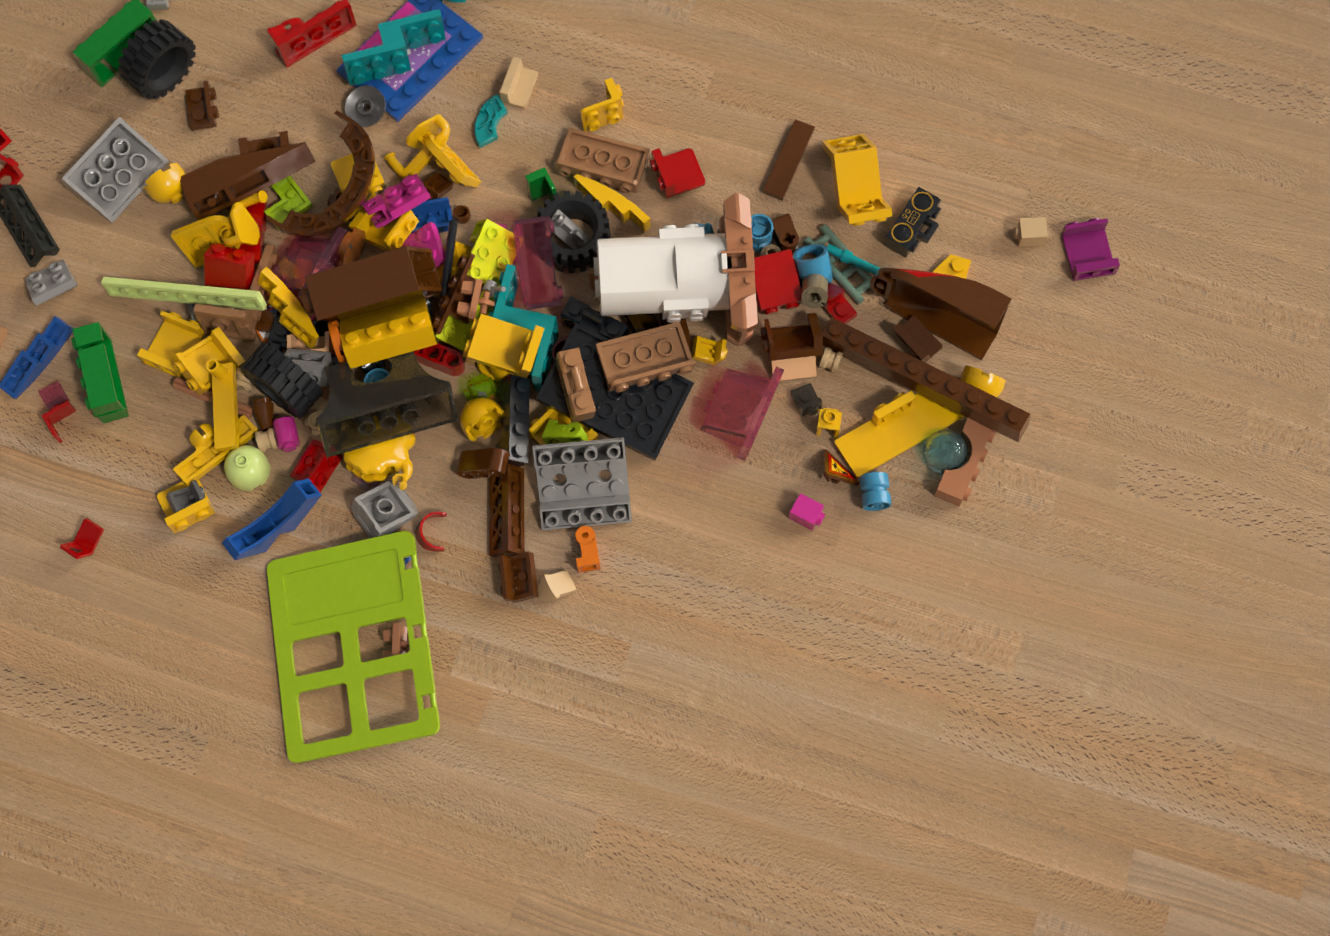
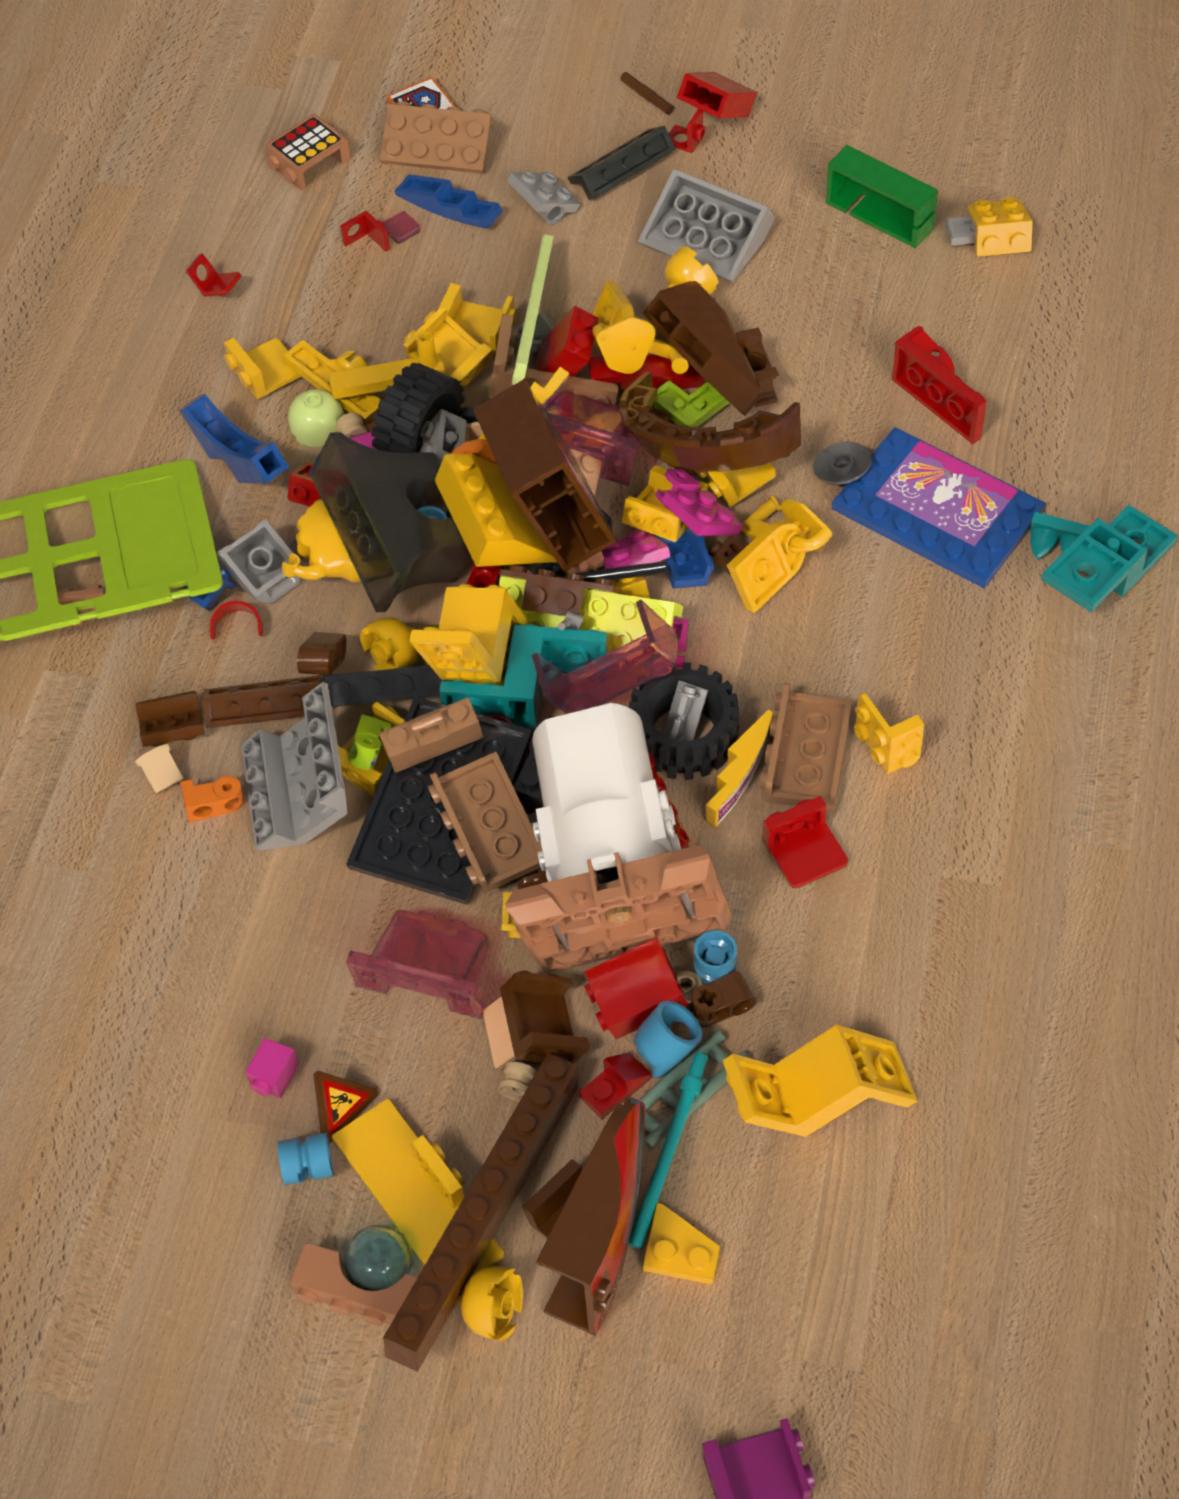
camera: 85 degrees right, 15 degrees down
(99, 372) = (425, 253): green piece -> none
(156, 59) = (841, 242): black tyre -> none
(185, 497) = (266, 358): dark grey bracket -> none
(201, 107) = (813, 300): reddish brown bracket -> none
(351, 246) = (621, 471): dark orange tile -> none
(396, 38) = (927, 470): teal bracket -> none
(461, 214) = (700, 595): reddish brown hinge -> none
(473, 289) = (545, 601): nougat hips -> none
(488, 119) = (856, 609): teal tile -> none
(518, 84) = (914, 633): tan panel -> none
(540, 184) = (748, 672): green panel -> none
(789, 160) = (853, 998): reddish brown tile -> none
(806, 400) = (452, 1056): clear smoke bracket -> none
(814, 291) = (618, 1037): dark tan piece -> none
(830, 420) = (413, 1086): yellow window -> none
(917, 213) = (767, 1180): black piece -> none
(1031, 232) = (775, 1371): tan brick -> none

